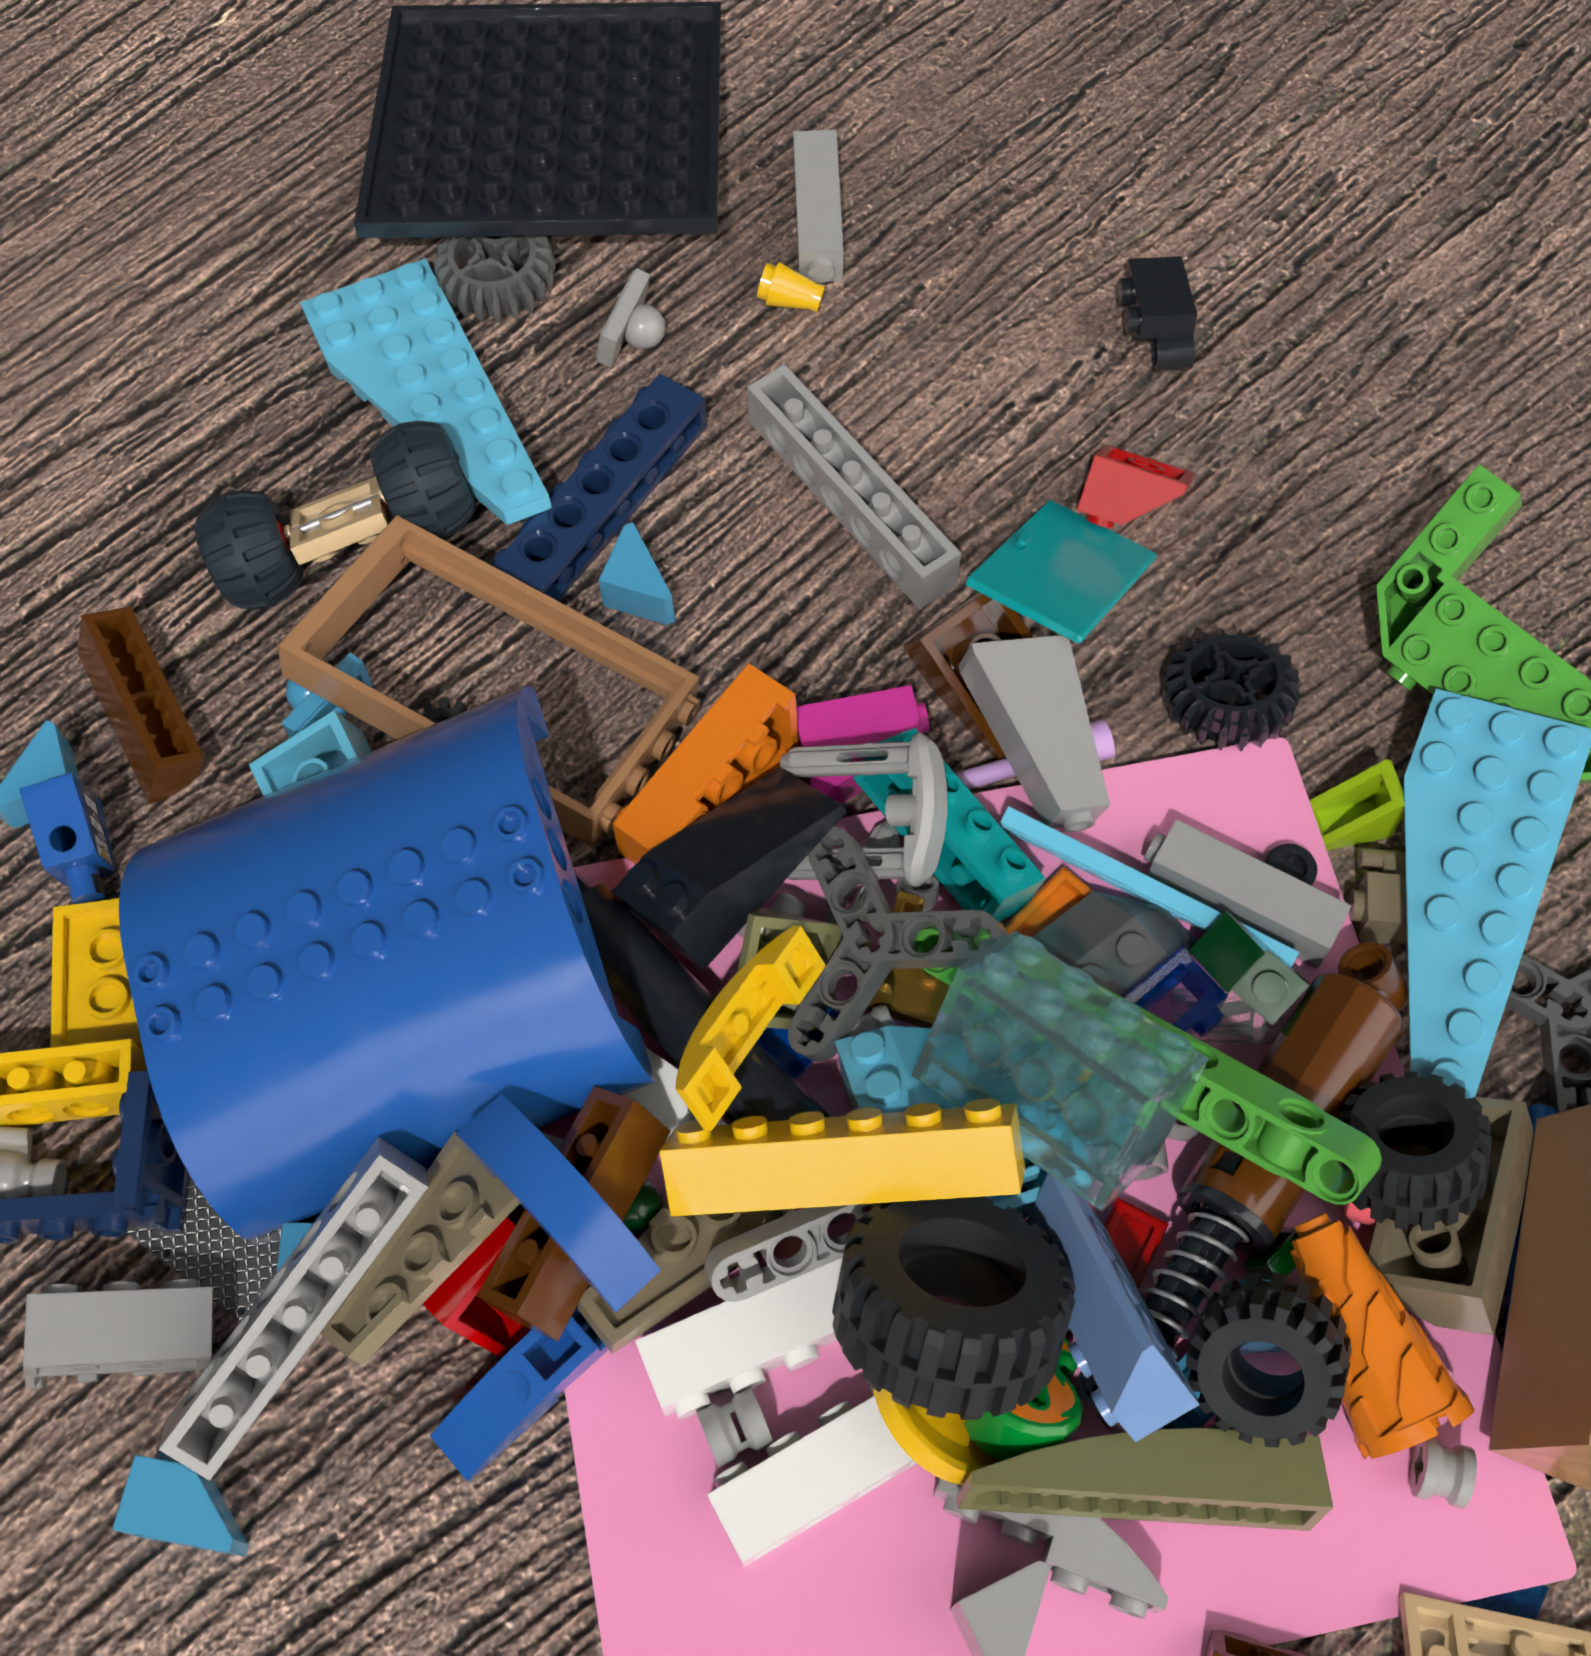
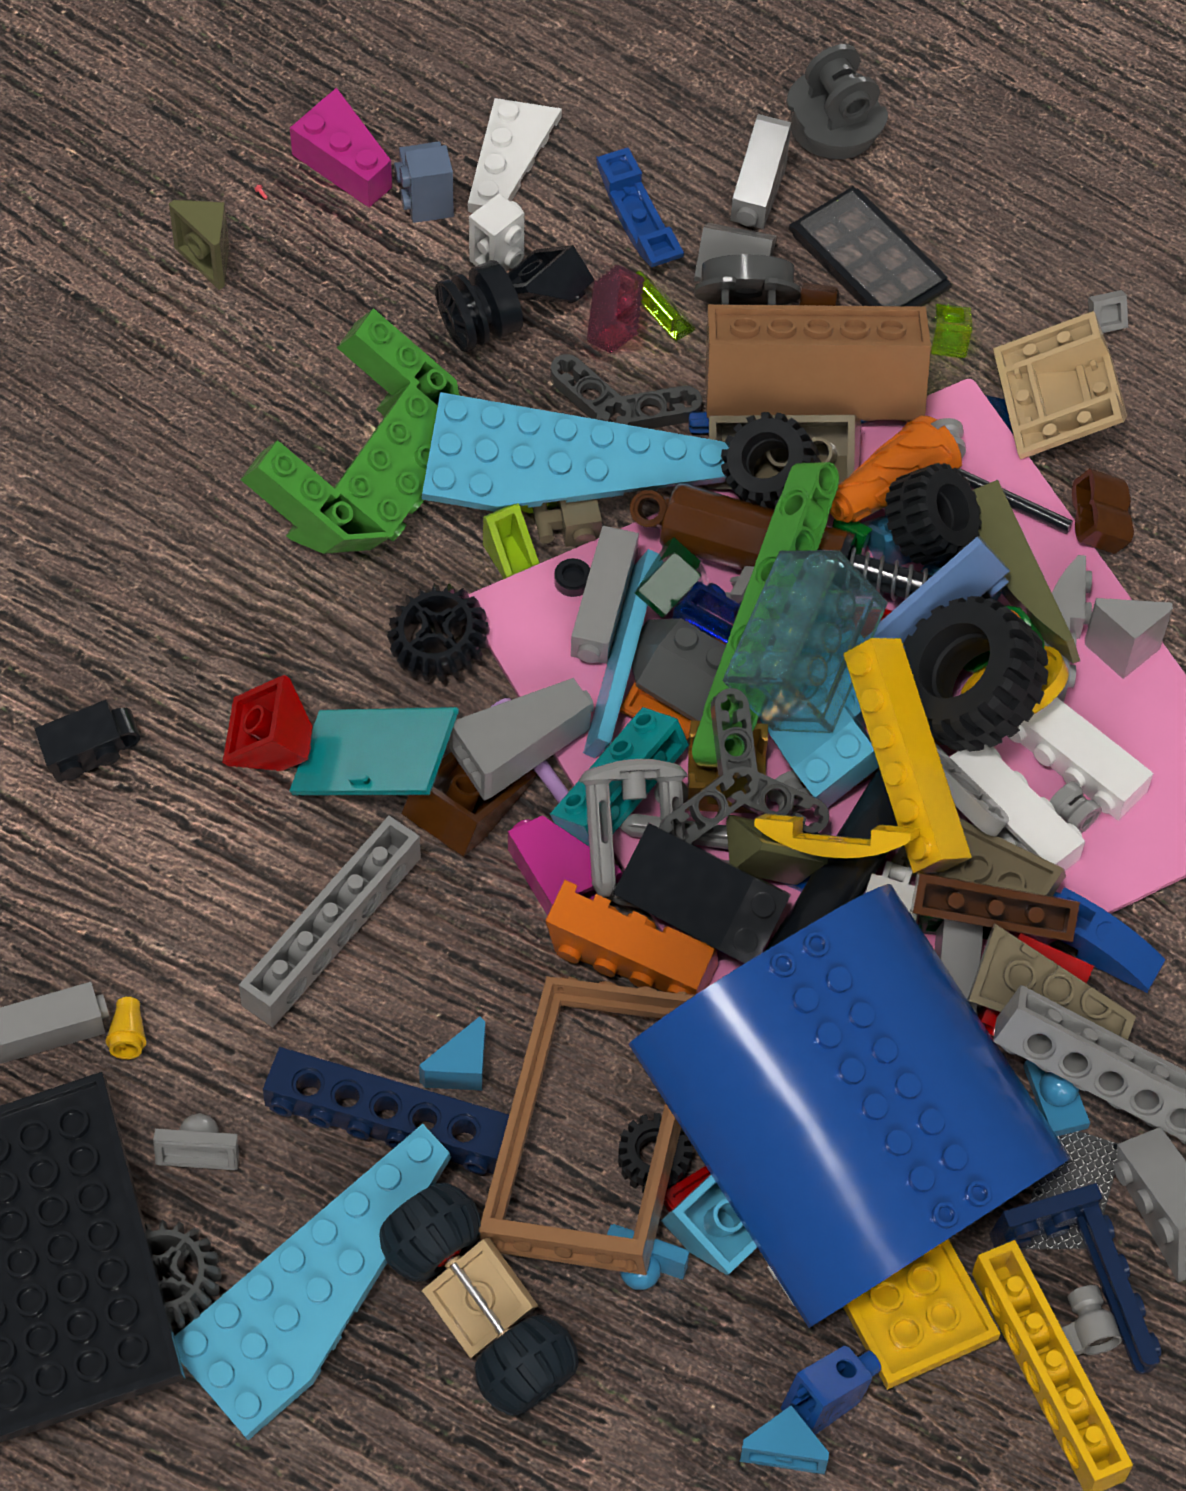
camera: 110 degrees left, 5 degrees down
(139, 703) = (692, 1401): reddish brown brick -> none
(559, 1201) = (997, 905): blue slope -> none
(1321, 1541) = (1025, 506): none -> black bar

